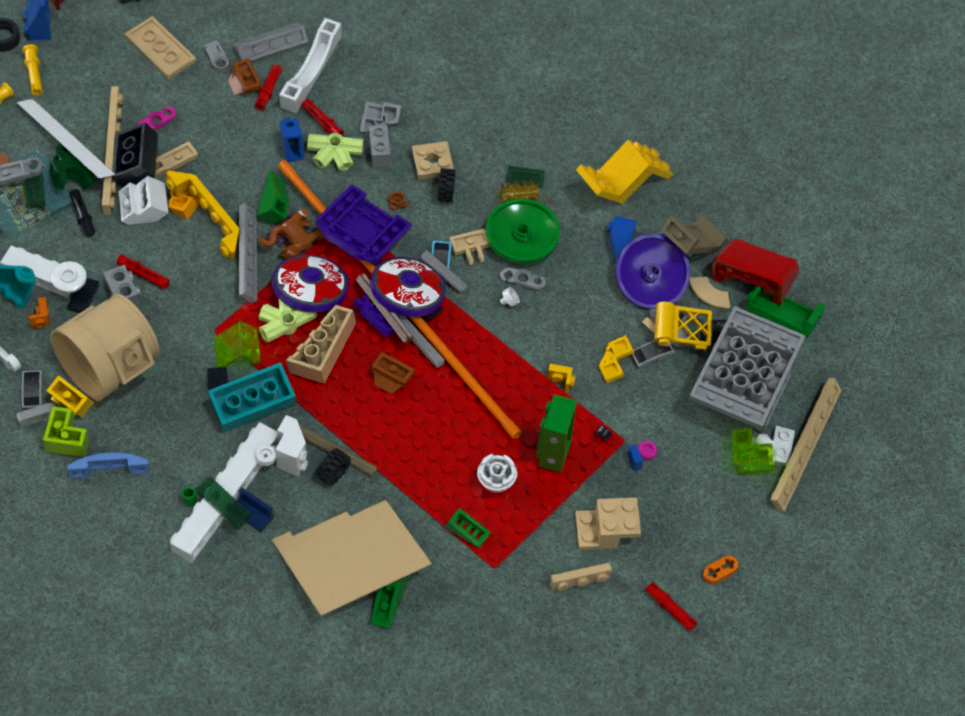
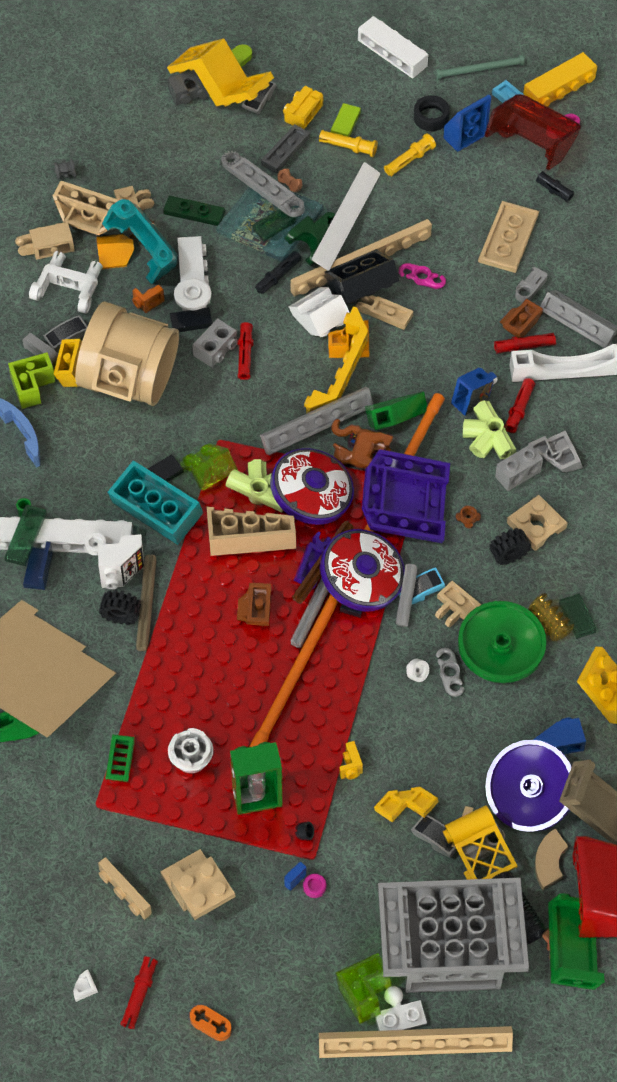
camera: 65 degrees right, 0 degrees up
(644, 643) = (84, 986): none -> white tile

